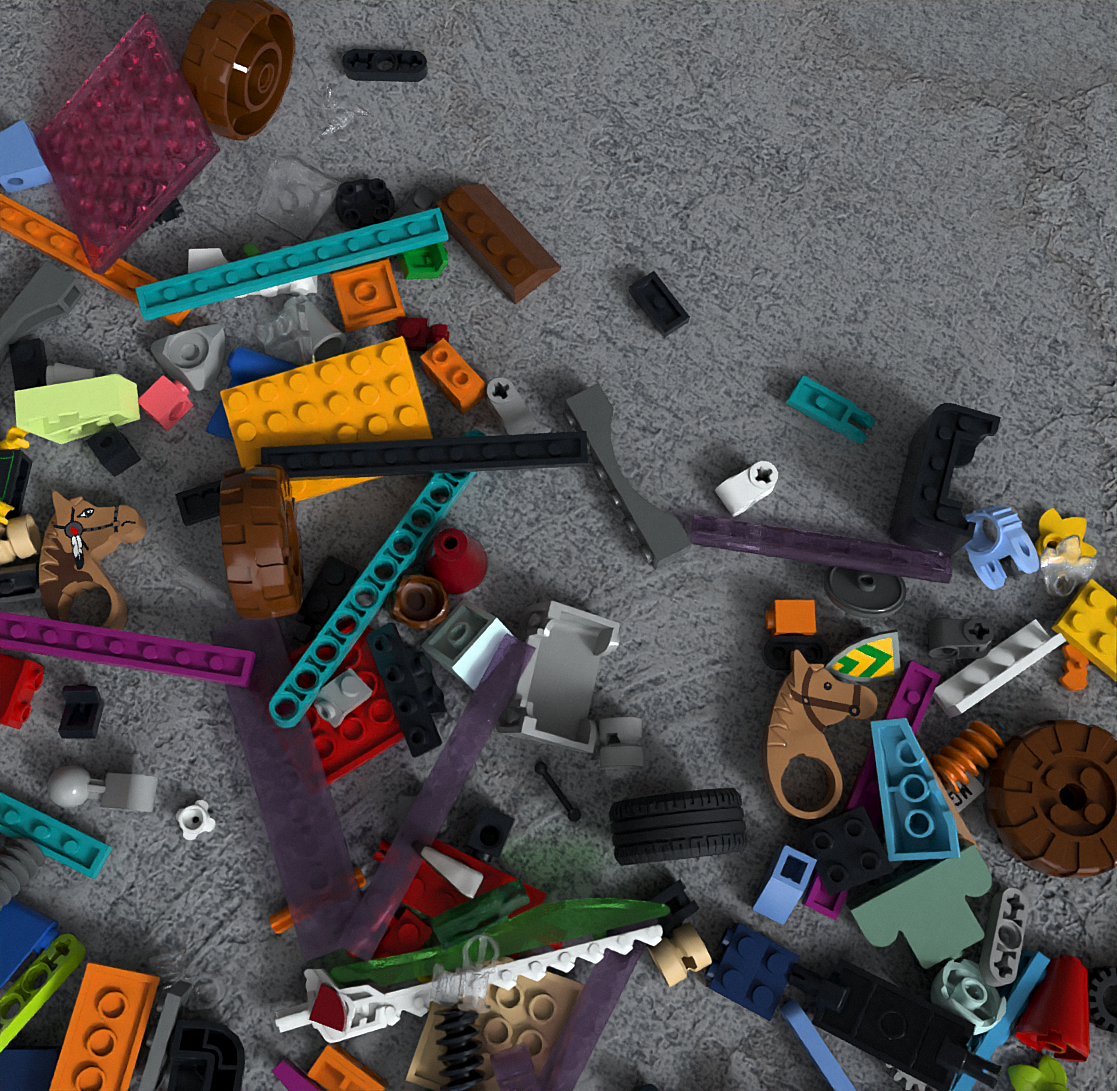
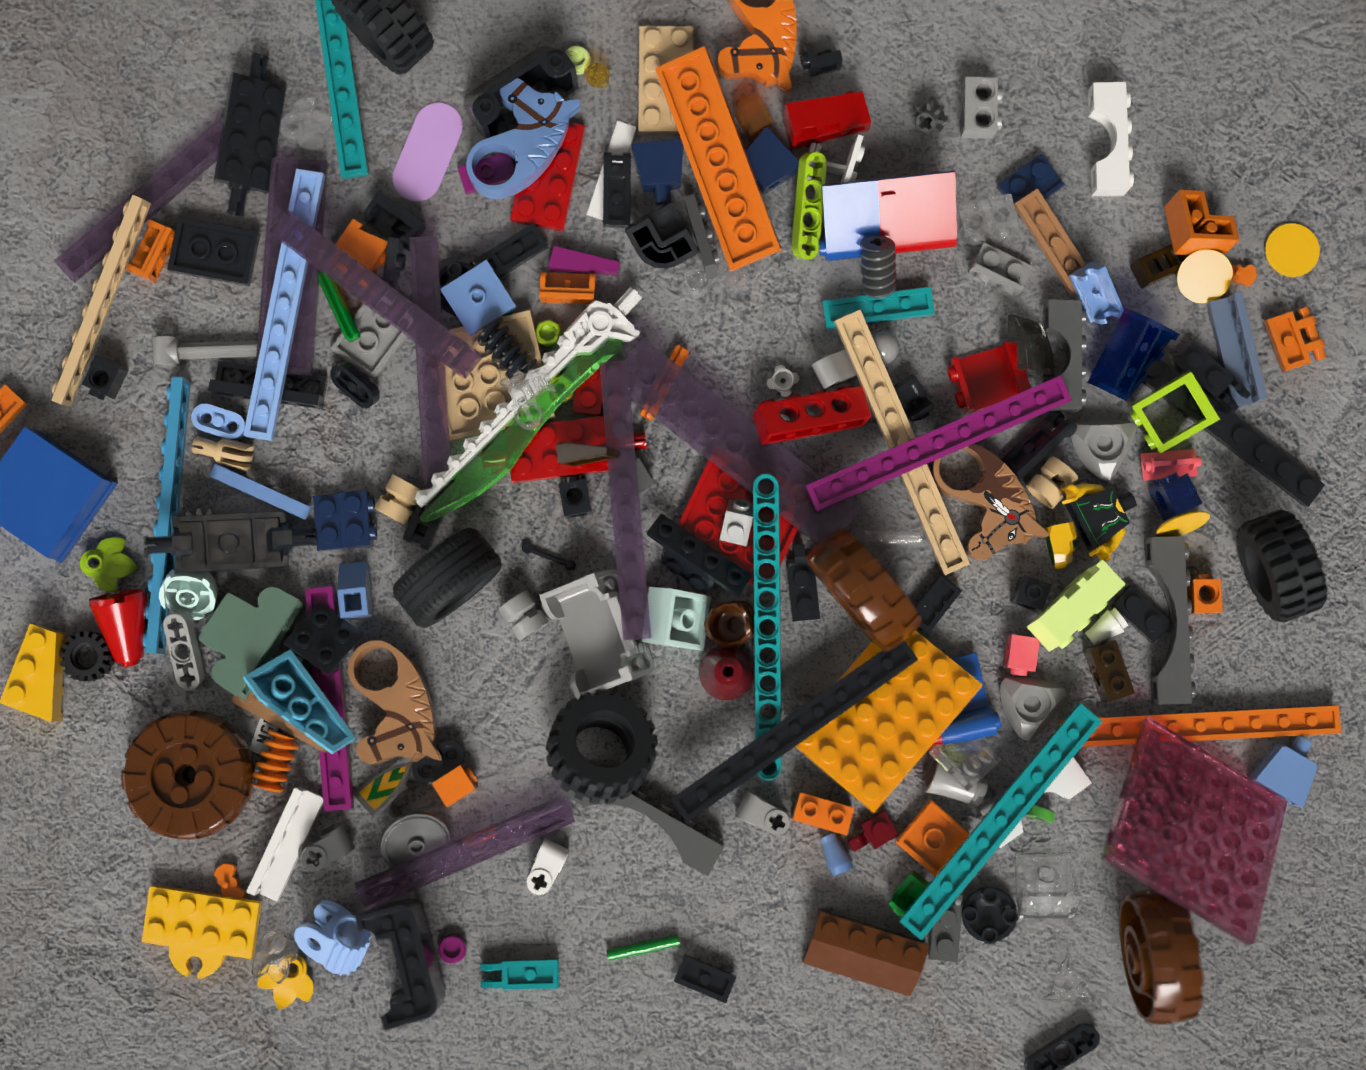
camera: 150 degrees right, 10 degrees up
(49, 477) = (1061, 544): none -> yellow rock
(98, 336) = (1108, 671): none -> dark brown brick
(118, 684) = (897, 431): none -> tan plate
(235, 768) = (775, 429): none -> red brick
(329, 1008) = (605, 319): dark red tile -> none
(403, 1039) = (548, 333): none -> lime tile
(466, 333) = (836, 855): none -> medium blue cone
(479, 914) = (545, 439): clear green hinge -> none
(584, 550) = (614, 715): none -> black tyre
(699, 365) = (643, 947): none -> green piece
(882, 472) = (452, 948): none -> magenta tile

